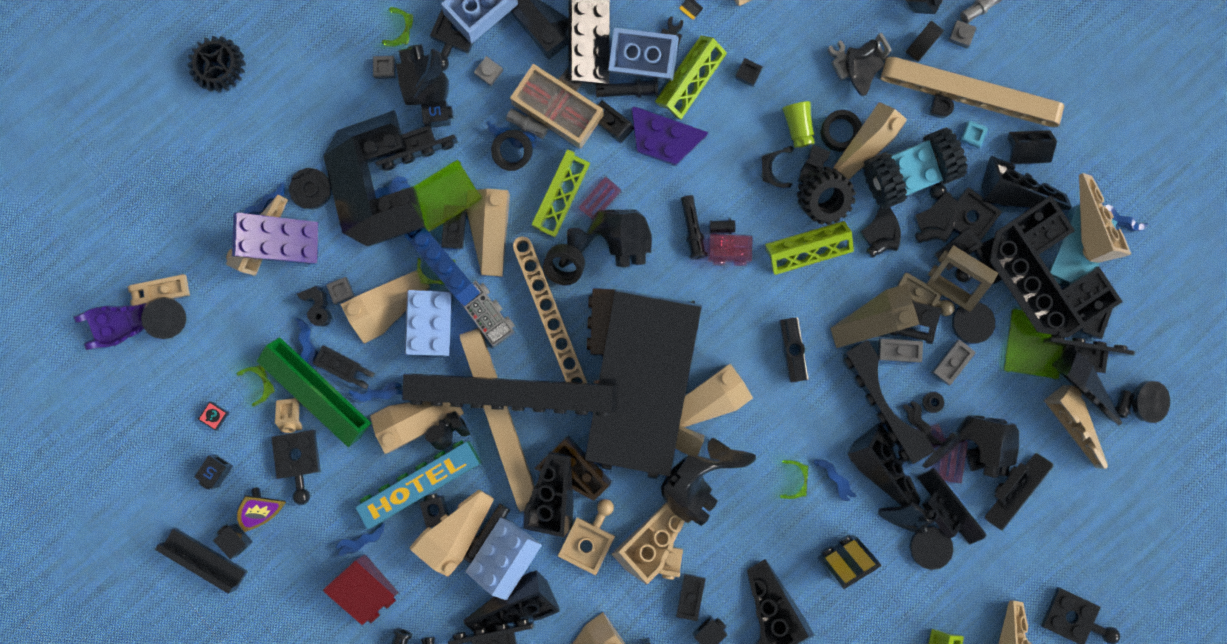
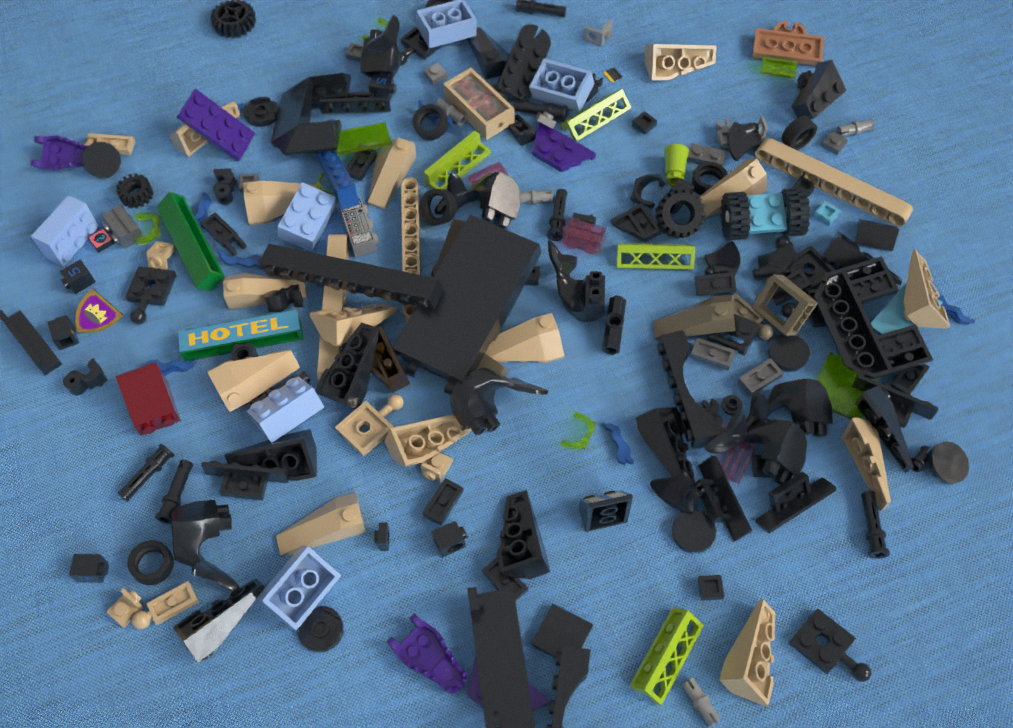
camera: 20 degrees right, 25 degrees down
(174, 426) = (65, 231): none -> light blue brick
(207, 343) = (130, 184): none -> black tyre
(229, 394) = (122, 226): none -> flat silver brick
(278, 589) = (78, 383): none -> black leg
(526, 444) = (339, 326): none -> tan wedge
(639, 105) = (546, 119): none -> light grey plate
(661, 211) = (536, 196): none -> light grey pin
(753, 330) = (580, 297): none -> black hips
(780, 213) = (637, 223): none -> black wing
(828, 95) = (701, 154): none -> flat silver plate
(882, 266) = (715, 284): none -> black plate
(961, 600) = (710, 587): none -> black plate
(1005, 383) = (803, 397): none -> black hips
(1097, 497) = (875, 533): none -> black pin

